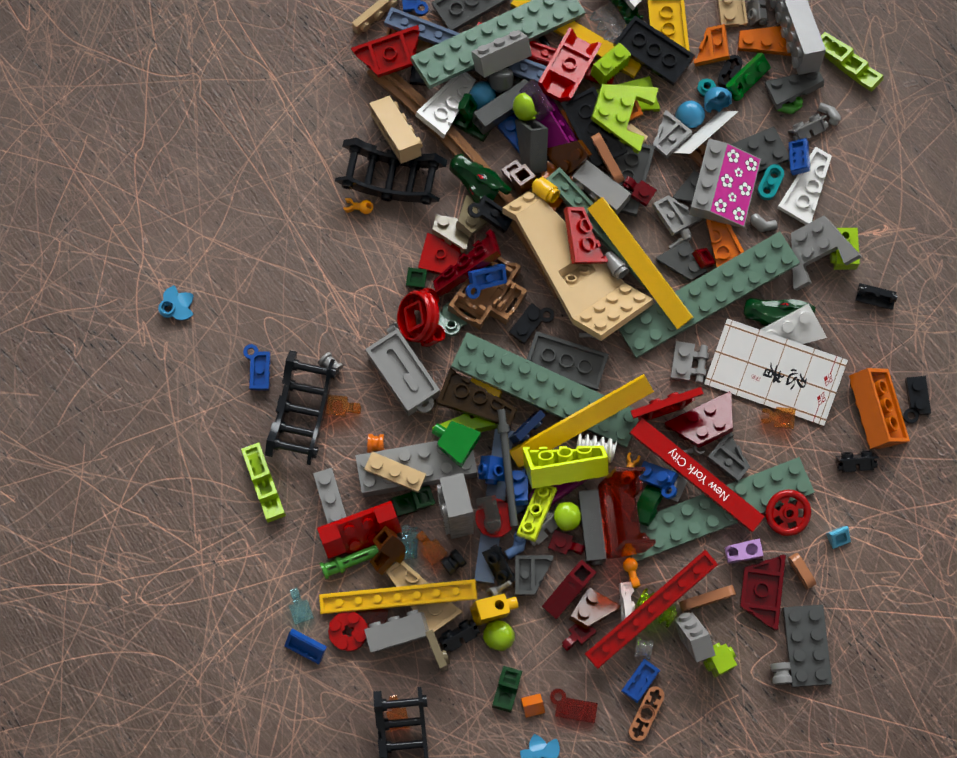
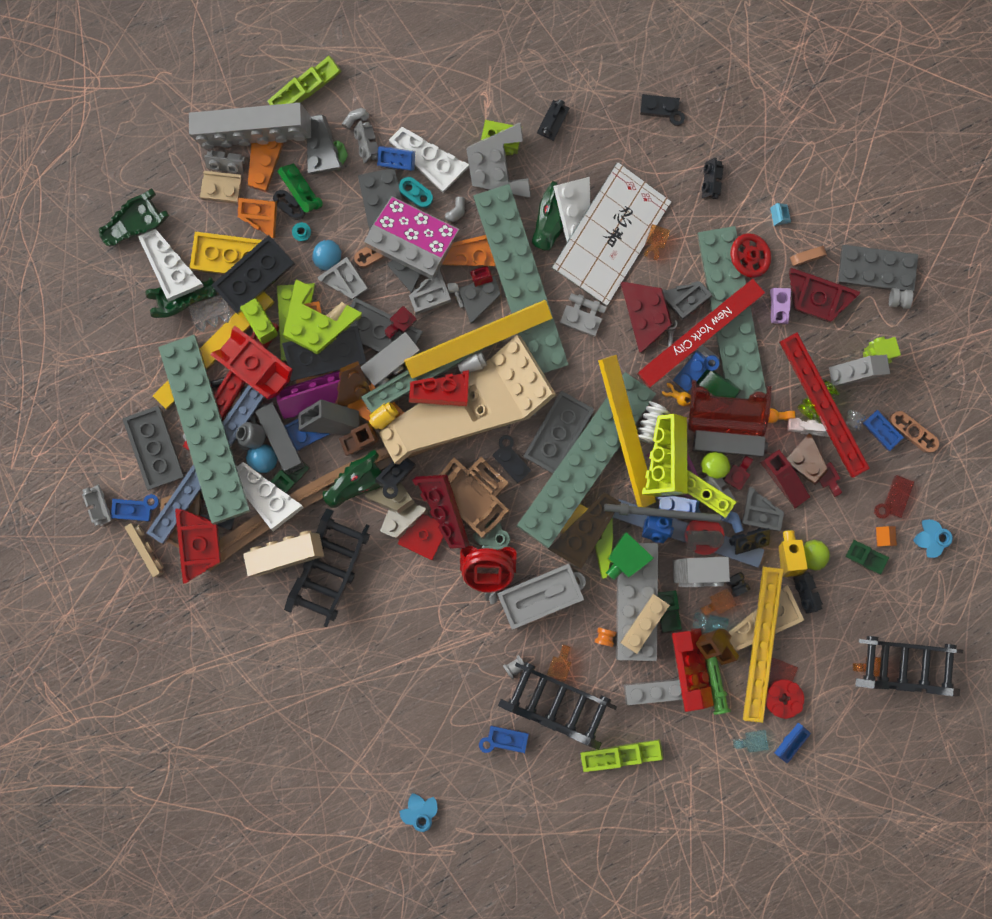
camera: 80 degrees left, 10 degrees up
(363, 206) = (355, 604): light orange arm -> none
(396, 631) = (797, 651): light grey brick -> none
(416, 278) = (443, 564): dark green plate -> none
(440, 656) = (828, 615): dark tan wing -> none
(467, 106) = (273, 476): dark green plate -> none
(485, 278) = (465, 495): blue hinge -> none
(497, 590) = (772, 547): light grey hand -> none
(501, 53) = (227, 429): light grey brick -> none
(524, 107) = (290, 418): lime hair -> none
(532, 422) = (618, 484): dark blue plate -> none
(540, 101) = (284, 404): clear purple plate -> none
(607, 158) = (362, 346): nougat beam -> none
(666, 406) = (625, 340): red wing -> none
(705, 132) = (352, 243): white sticker -> none
(707, 598) = (817, 348): nougat beam -> none
(717, 99) = (317, 224): dark azure hair -> none
(878, 408) = (666, 145): orange slope -> none

